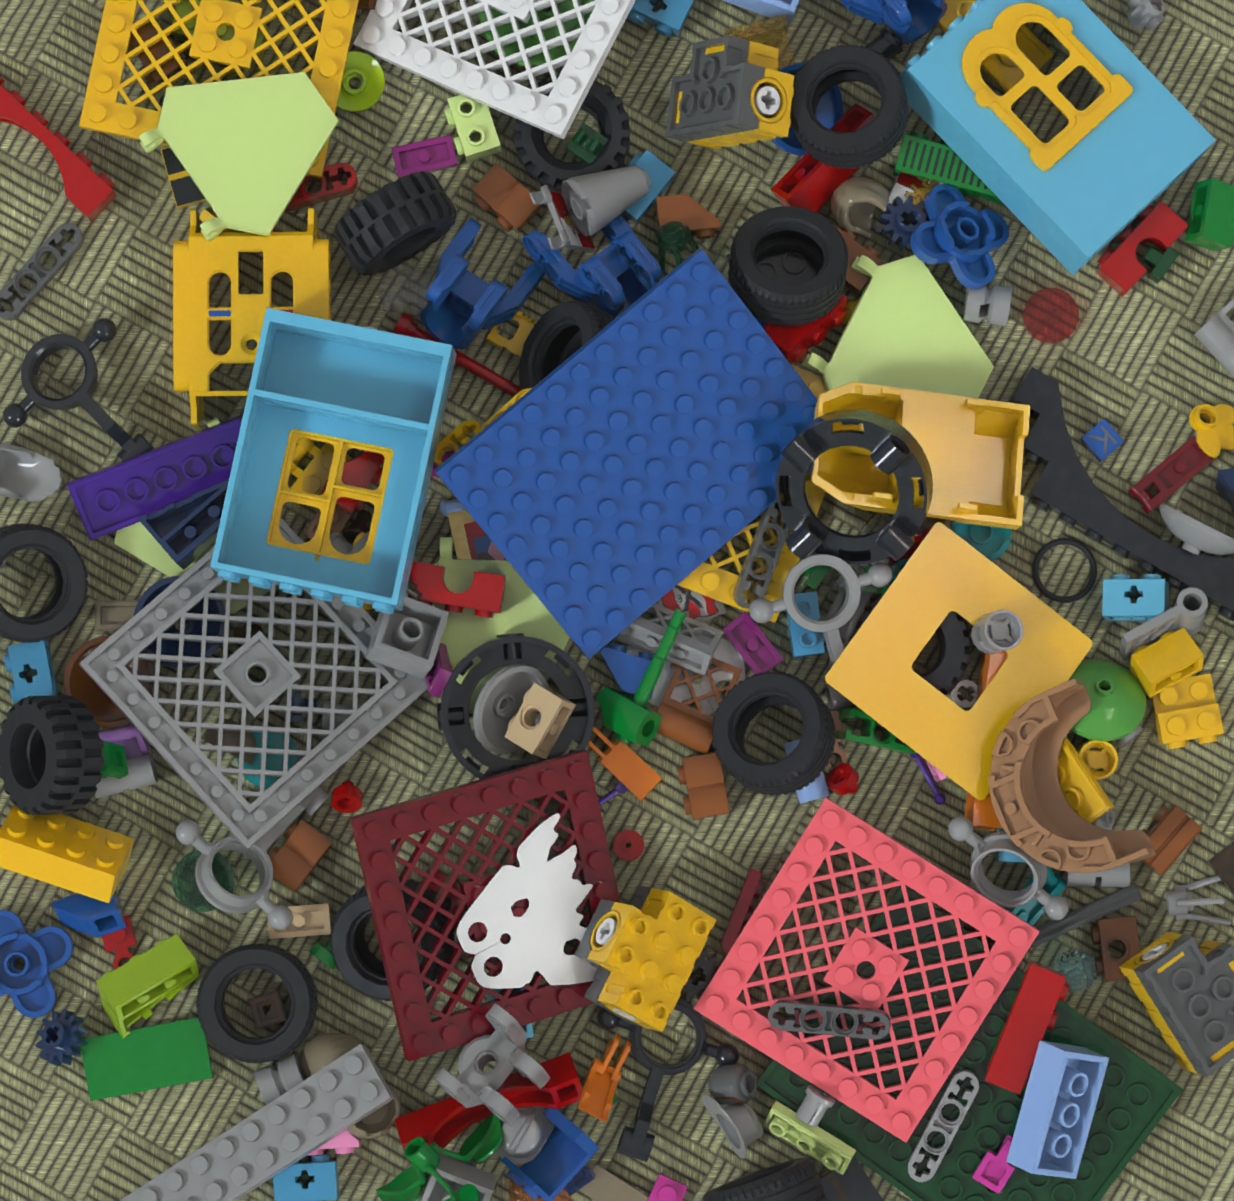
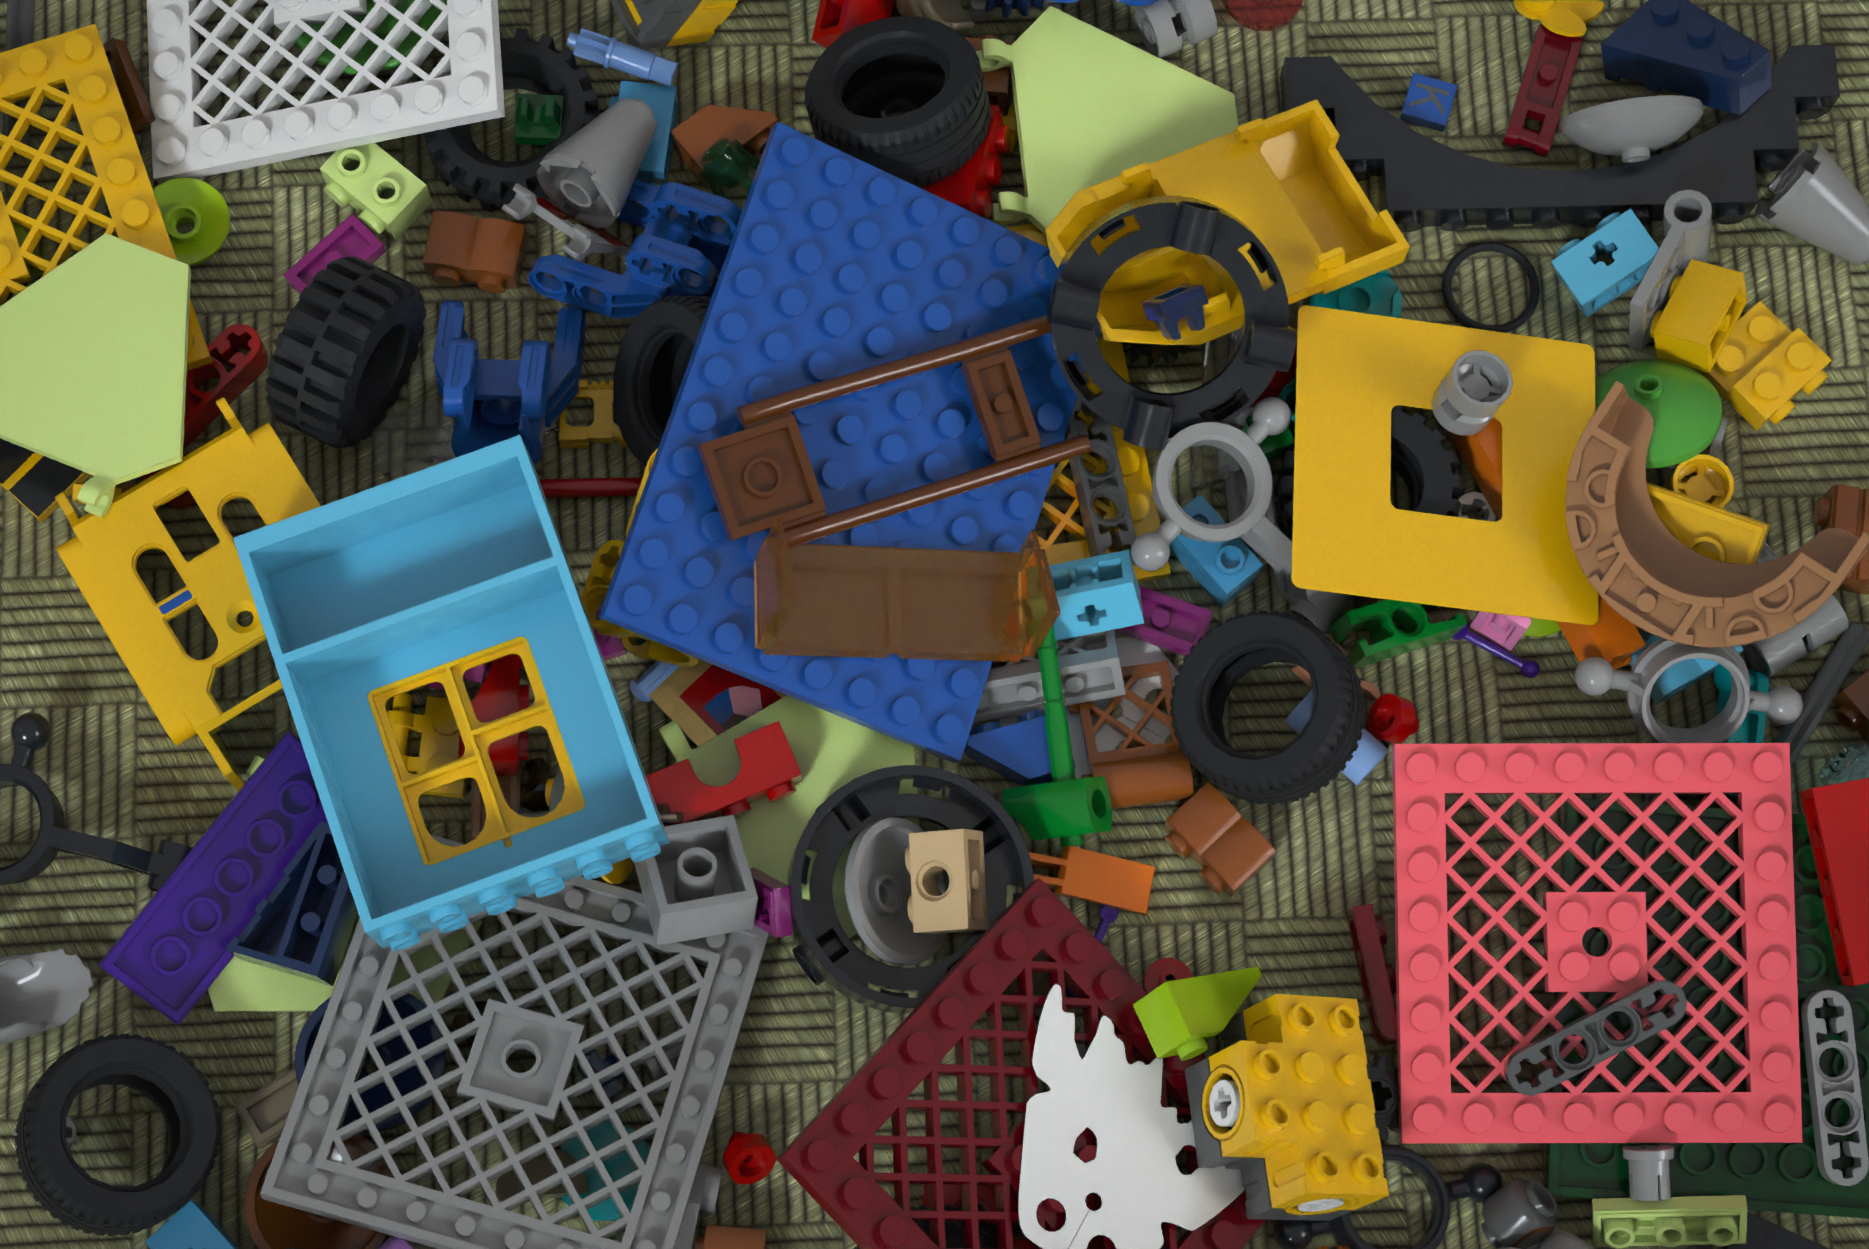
camera: 35 degrees left, 10 degrees down
(570, 449) = (769, 474): none -> reddish brown plate
(607, 556) = (901, 601): none -> clear orange piece
(625, 872) = (1192, 1010): none -> lime slope
(655, 138) = (622, 56): none -> medium blue piece
(717, 611) = (1096, 595): none -> medium azure brick
(815, 575) = (1184, 477): green tile -> none
(859, 484) = (1174, 304): none -> clear blue tile

